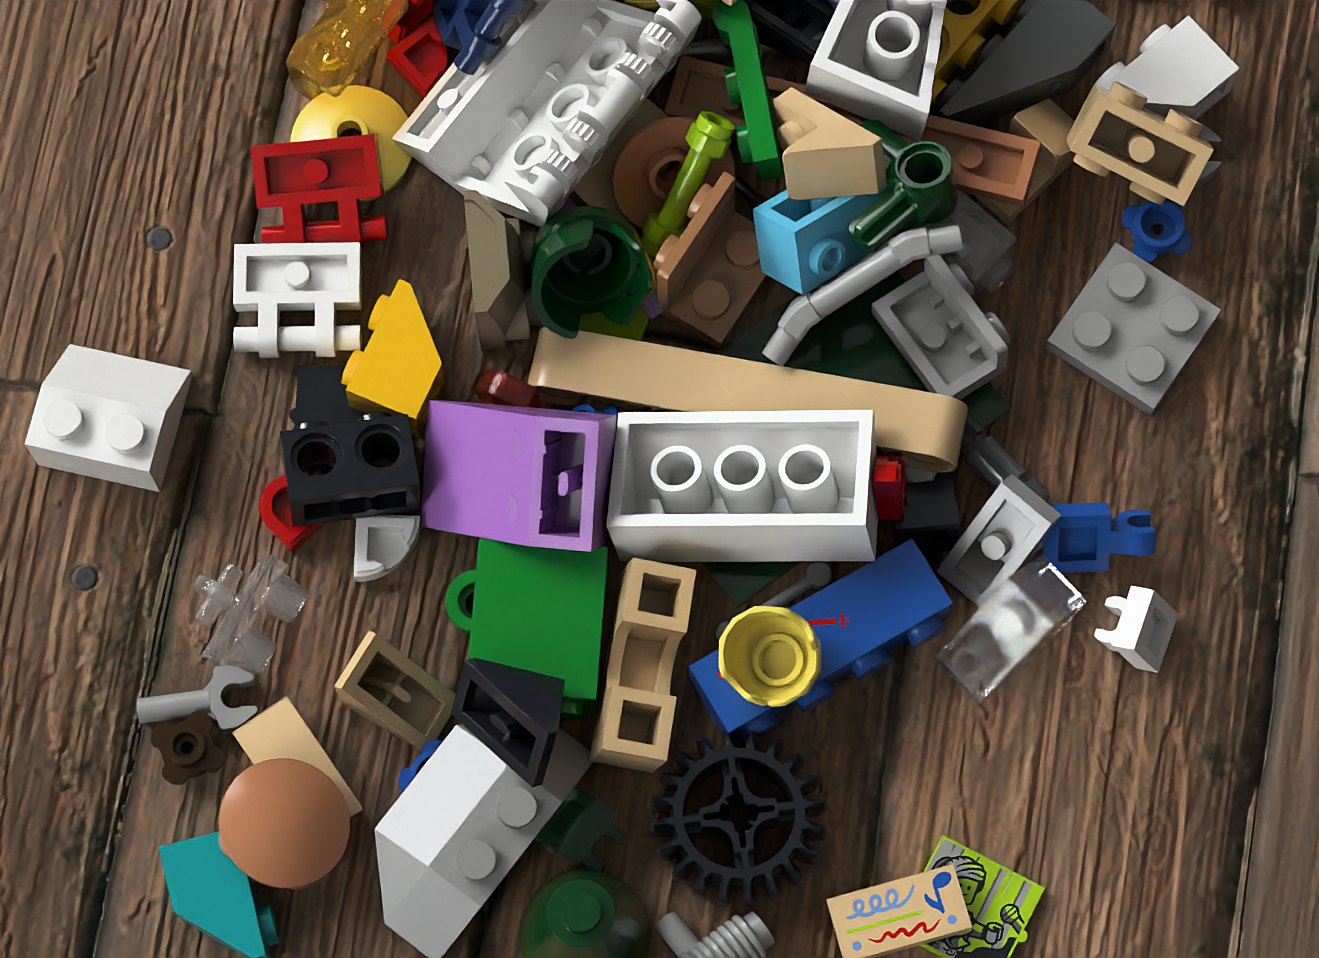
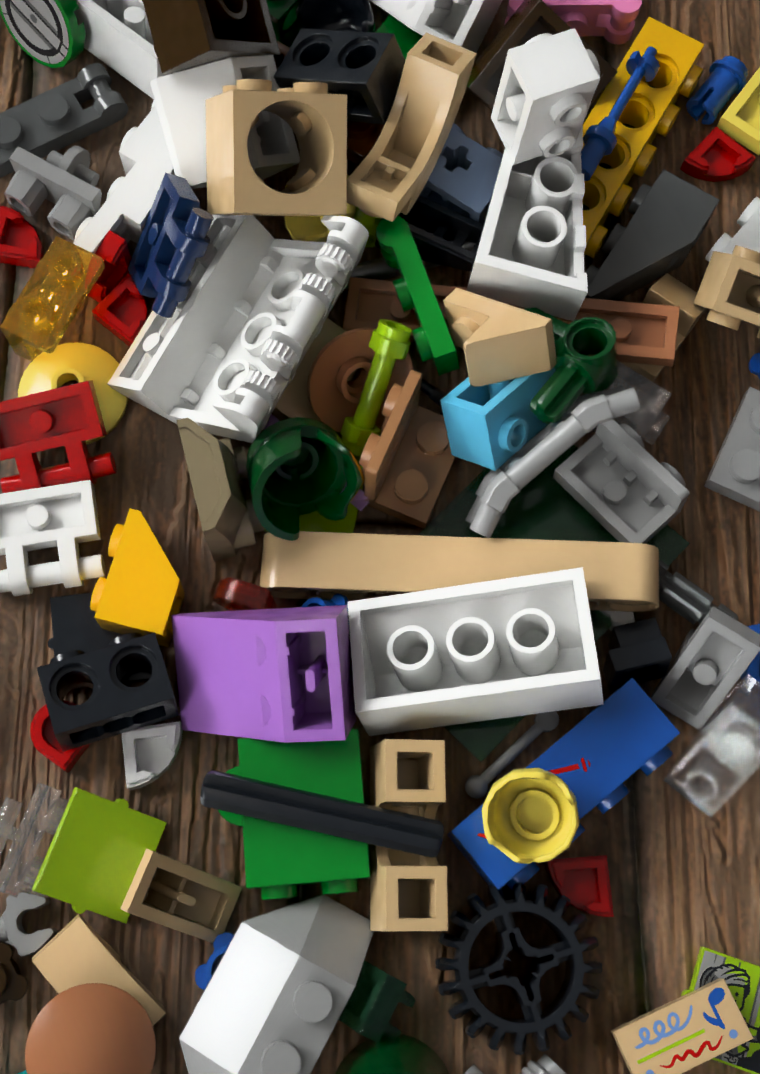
camera: 15 degrees left, 0 degrees up
(313, 637) = (97, 854): none -> lime piece
(511, 713) = (296, 909): black slope -> none
(555, 624) = (322, 813): none -> black axle
(826, 750) = (584, 883): none -> red tile
(889, 486) = (606, 634): red tile -> none

